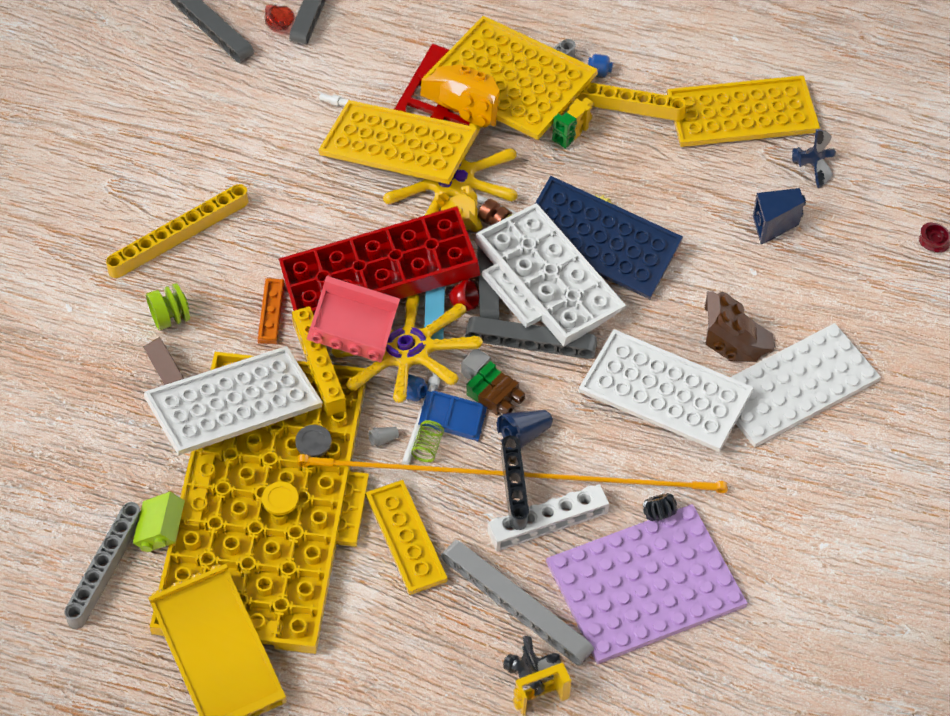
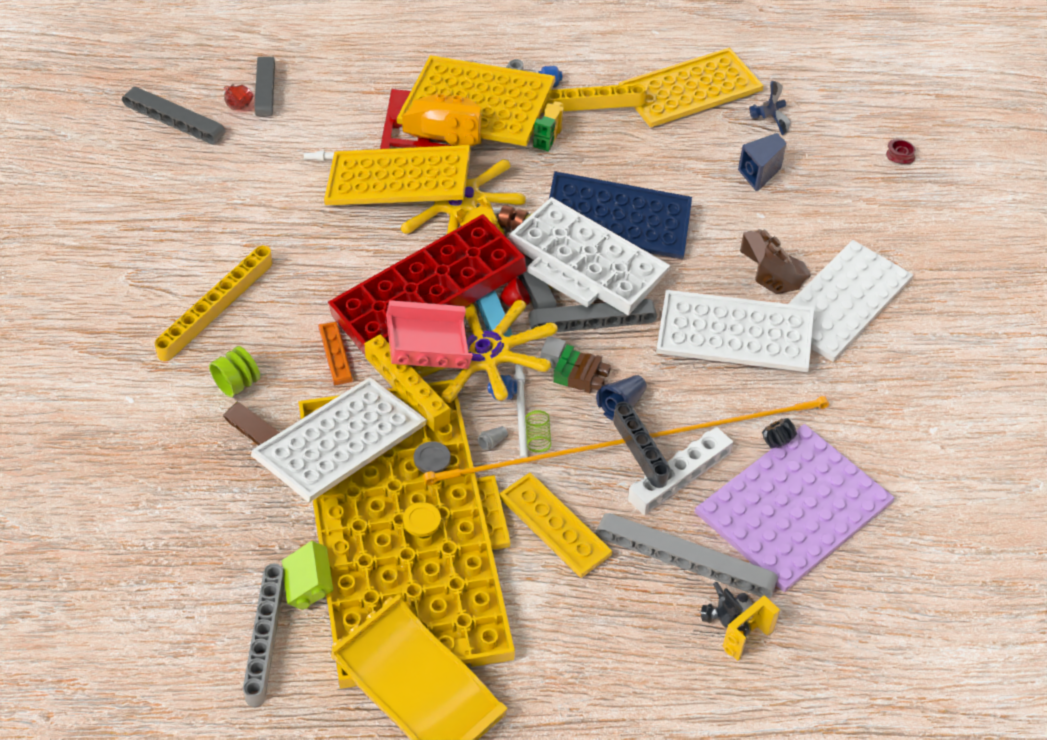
camera: 20 degrees left, 5 degrees down
(454, 413) = (559, 401): blue piece -> none

